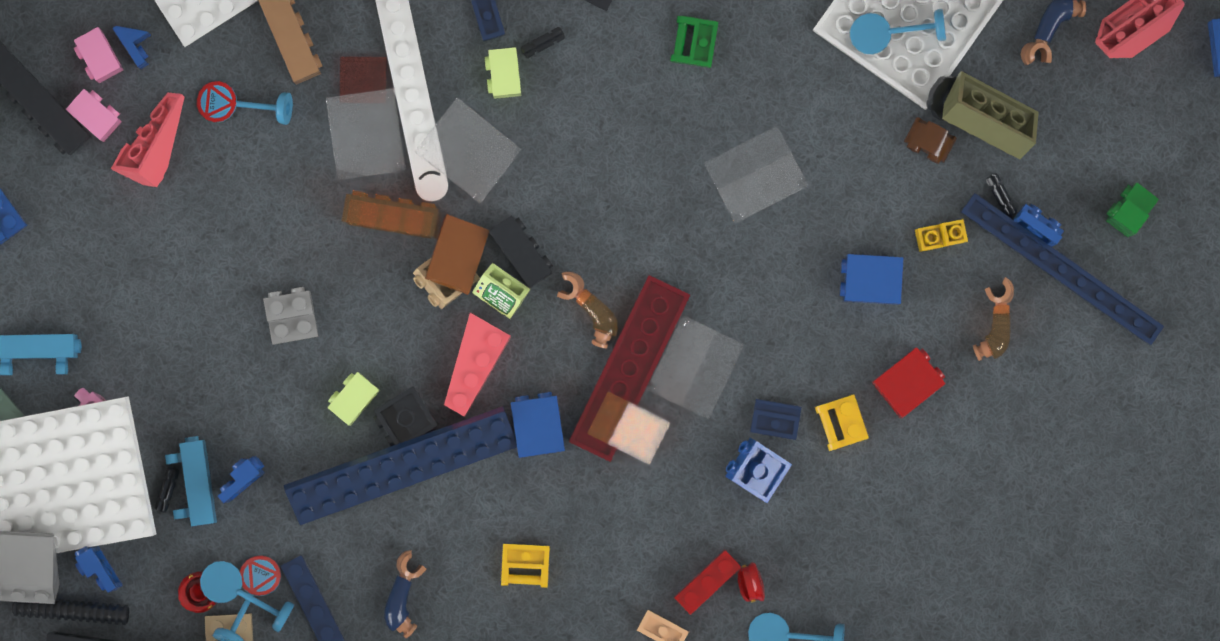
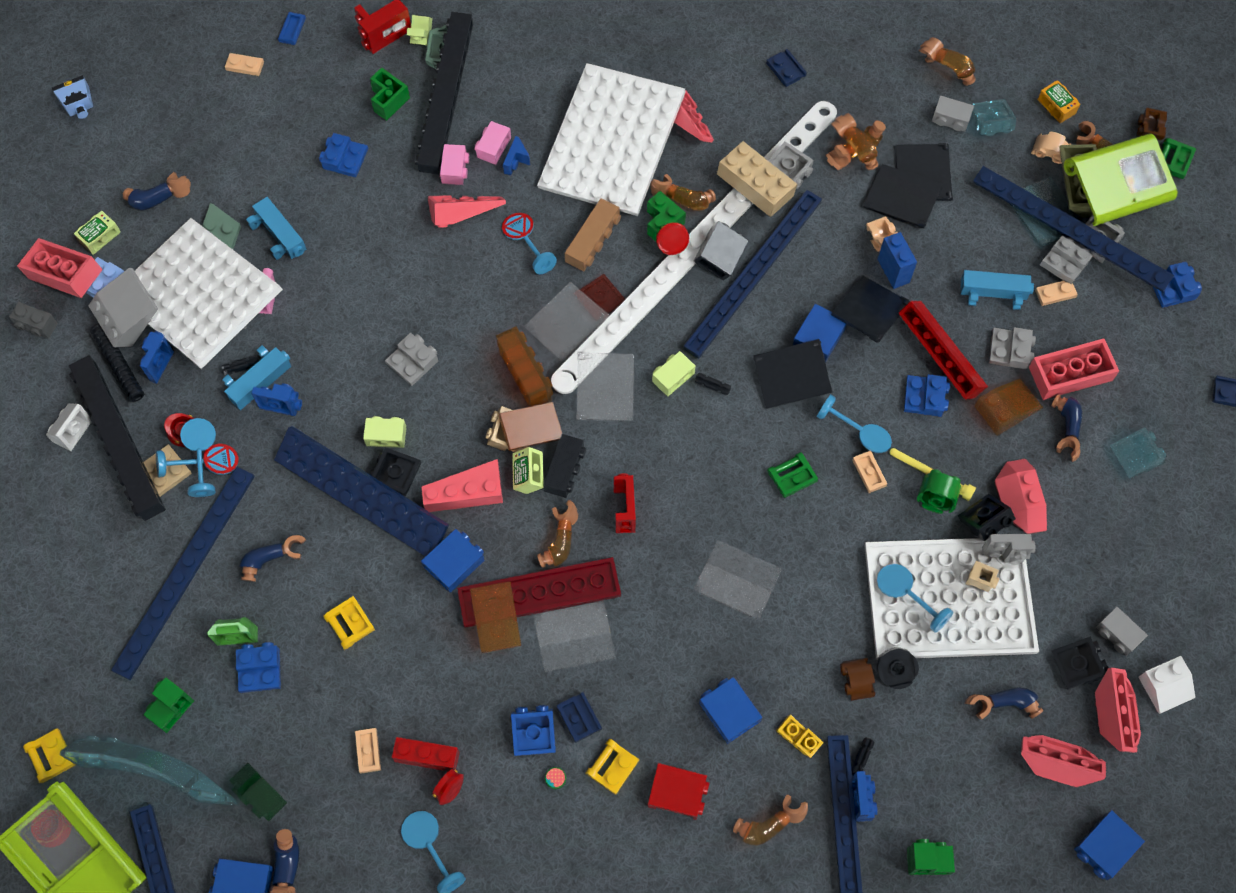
camera: 55 degrees right, 20 degrees down
(611, 220) = (625, 521): none -> red panel
(814, 481) = (555, 778): none -> coral tile
(991, 115) = (910, 703): olive slope -> none

